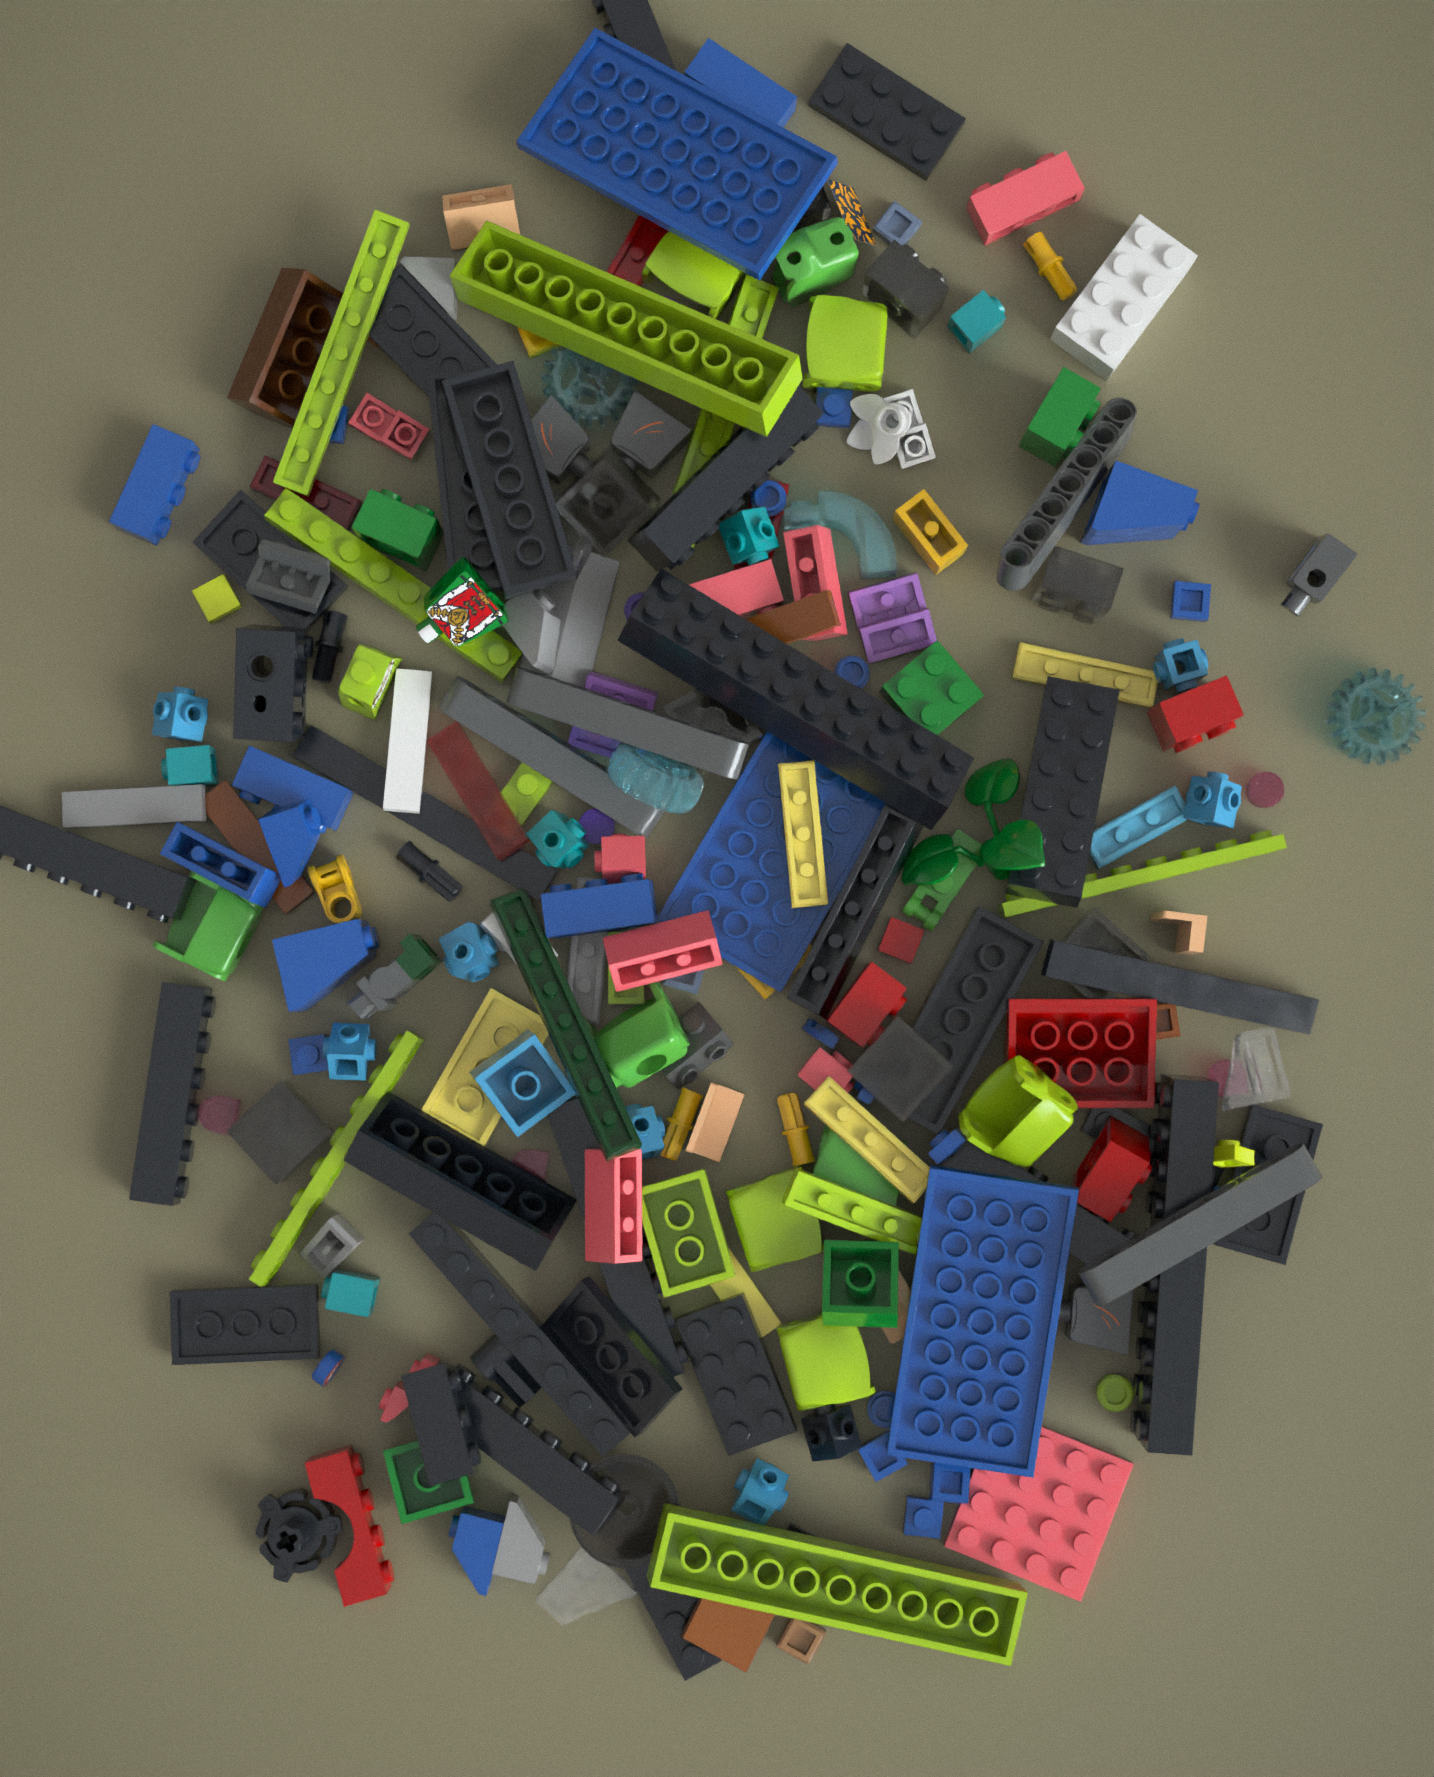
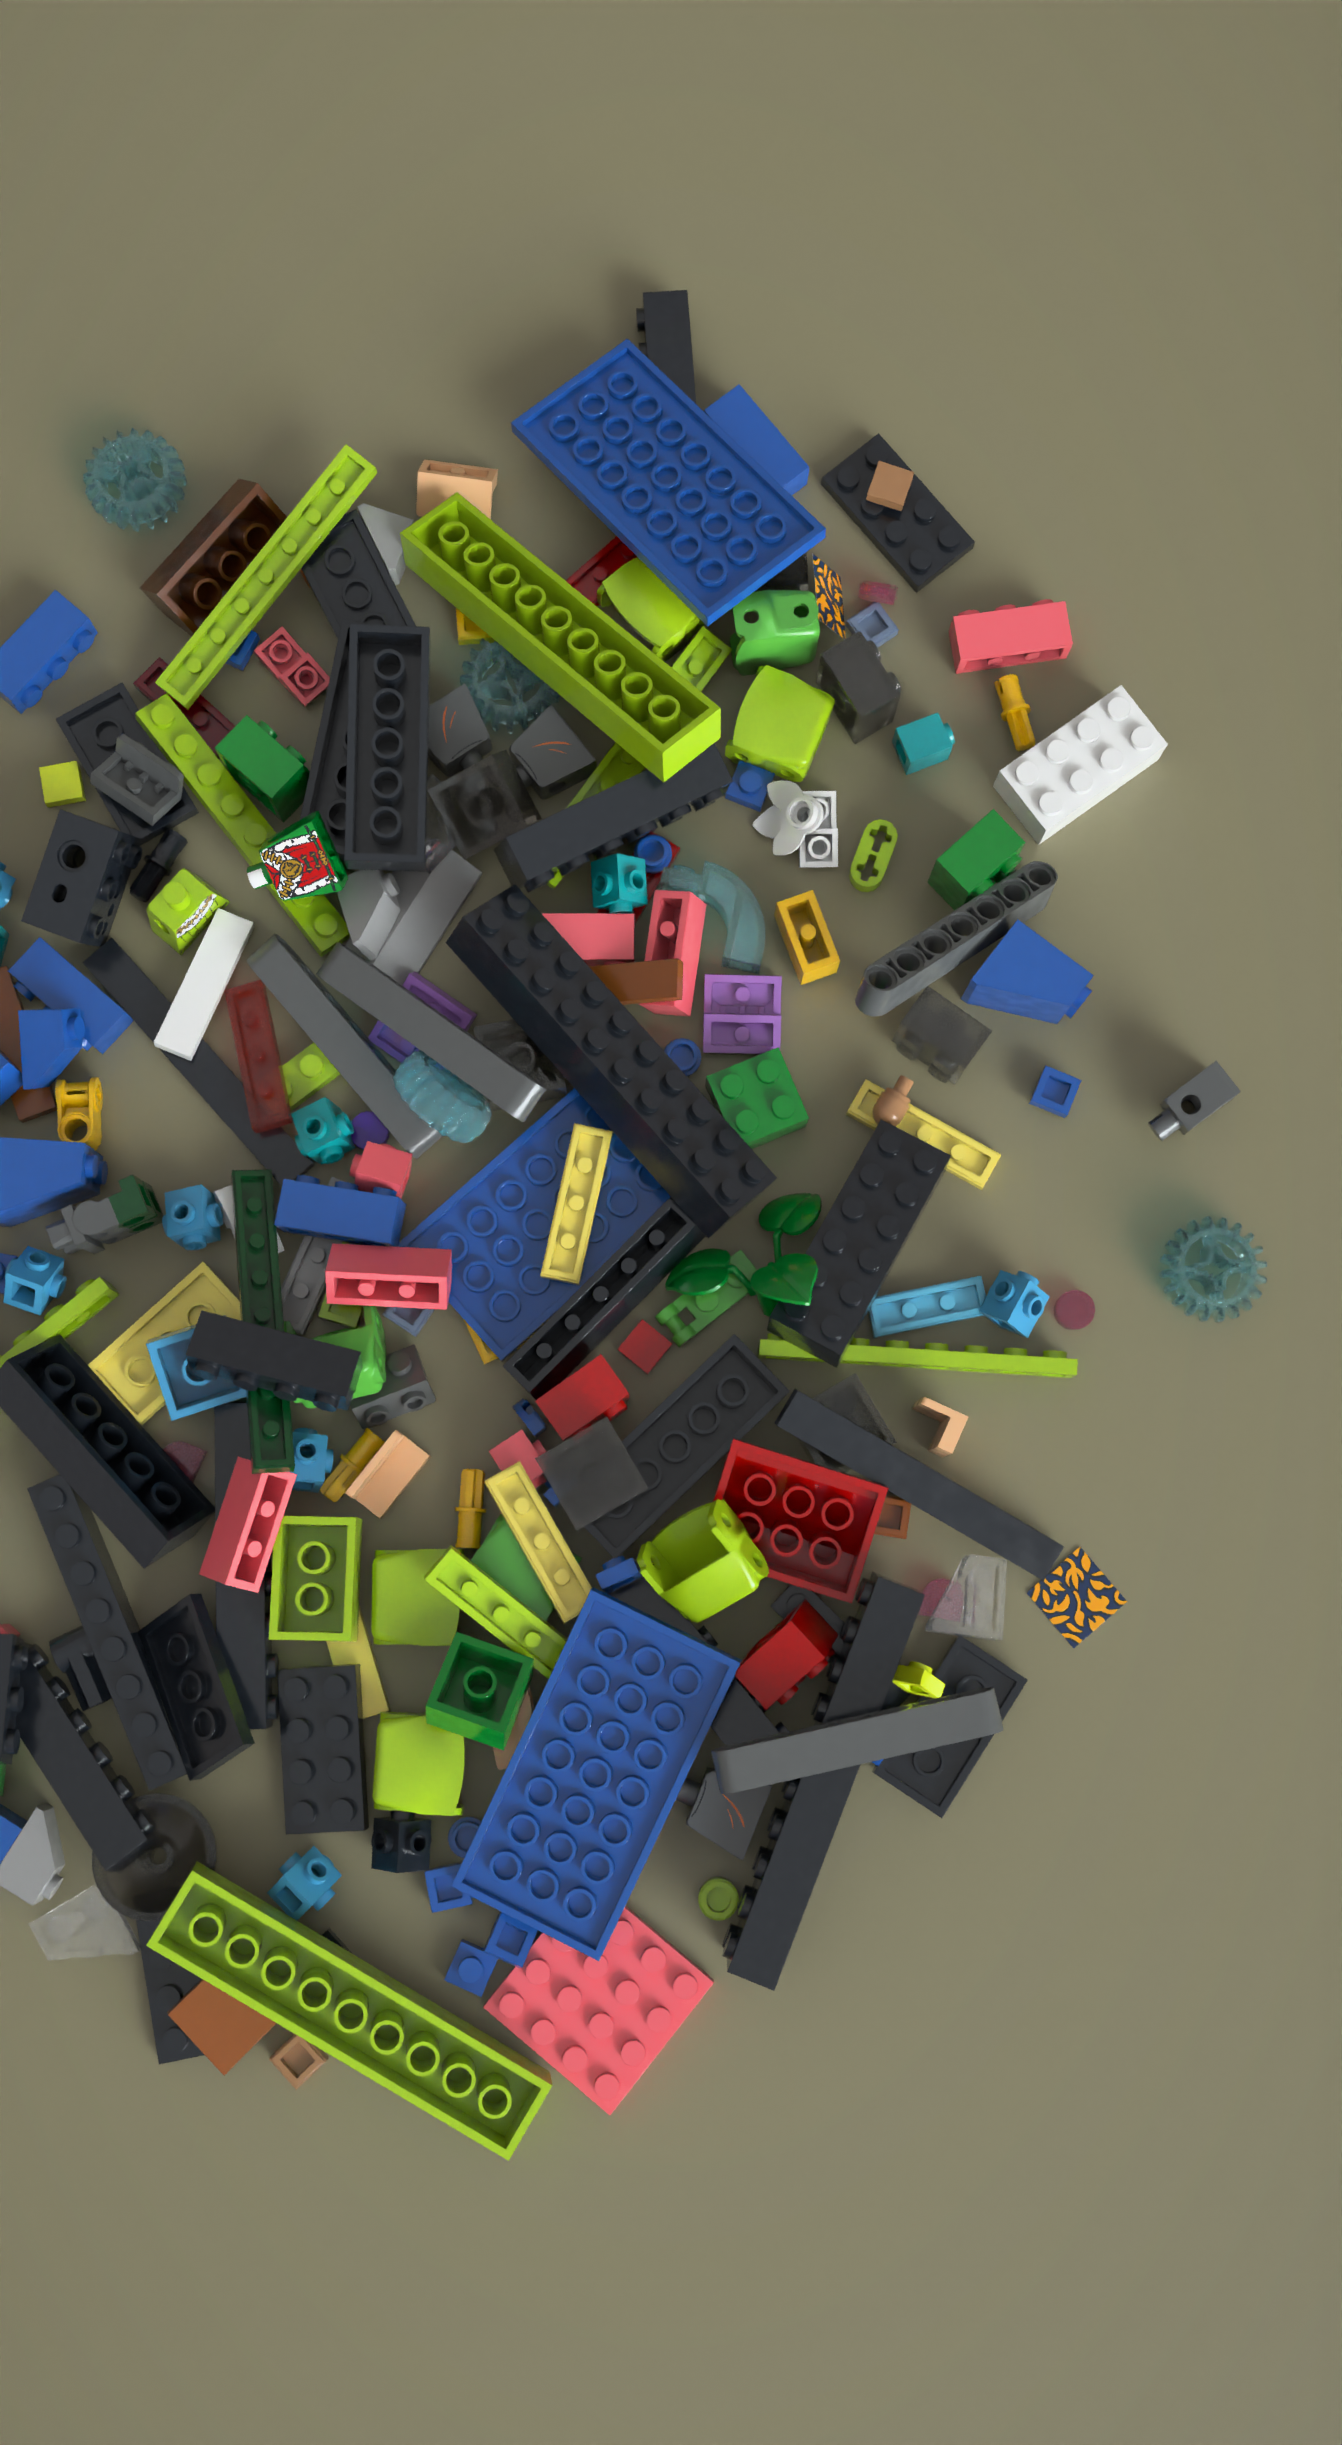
camera: 15 degrees right, 5 degrees down
(158, 294) = (127, 461): none -> clear light blue gear
(429, 871) = (181, 1123): black axle -> none
(593, 1059) = (274, 1361): none -> black brick
(874, 91) = (890, 486): none -> medium nougat tile
(893, 193) = (878, 592): none -> clear pink tile
(955, 437) = (865, 852): none -> lime beam
(1052, 657) = (893, 1102): none -> medium nougat cylinder
(1189, 656) = (1033, 1143): dark azure brick -> none
(1198, 712) = (1023, 1206): red brick -> none
(1342, 1039) = (1076, 1597): none -> sticker

